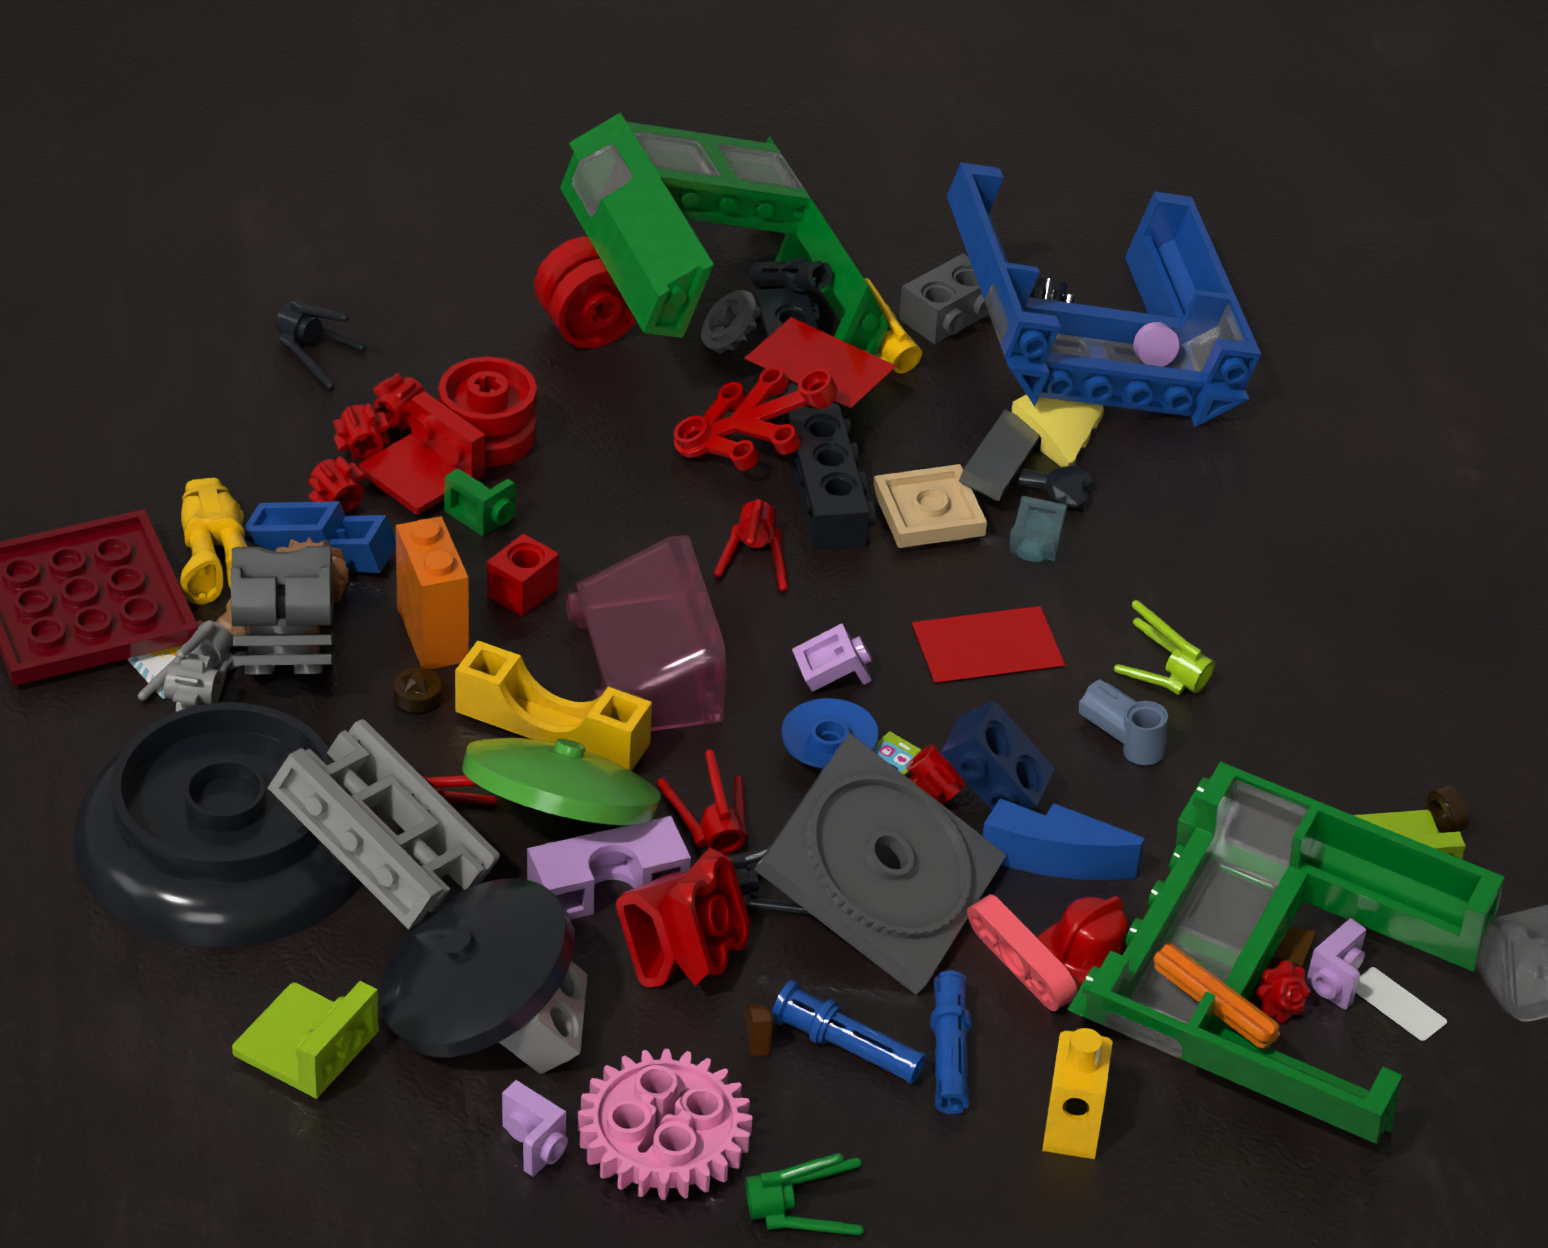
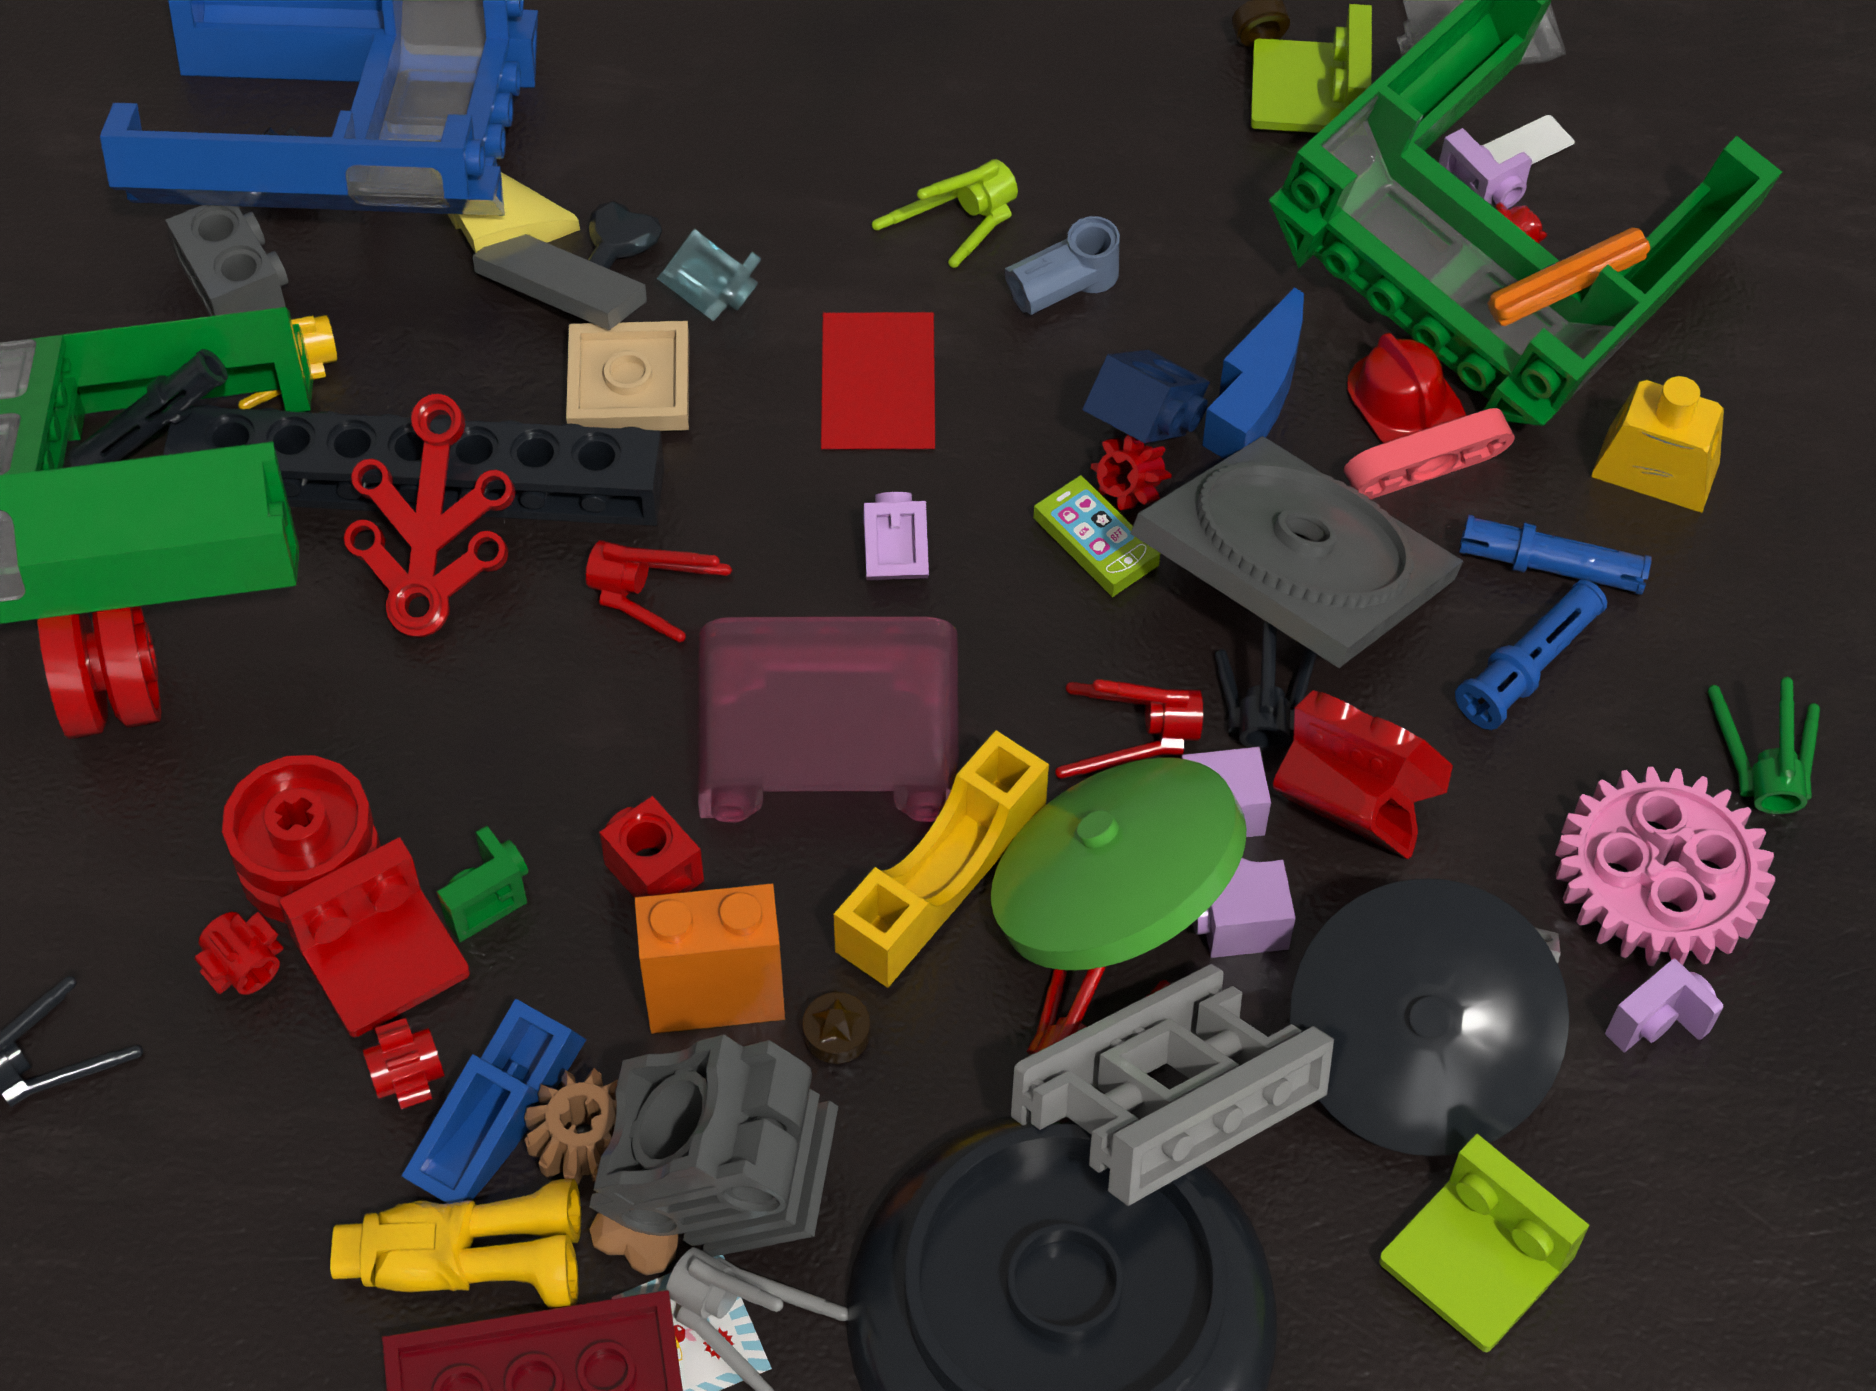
camera: 75 degrees left, 15 degrees up
(192, 682) = (801, 1319): light grey gear -> none
(361, 431) = (290, 1013): red gear -> none
(758, 1029) = (1511, 743): reddish brown tile -> none
(803, 348) = (341, 421): red sticker -> none
(820, 725) = (1037, 545): blue dish -> none
(1156, 344) = (414, 70): lavender tile -> none

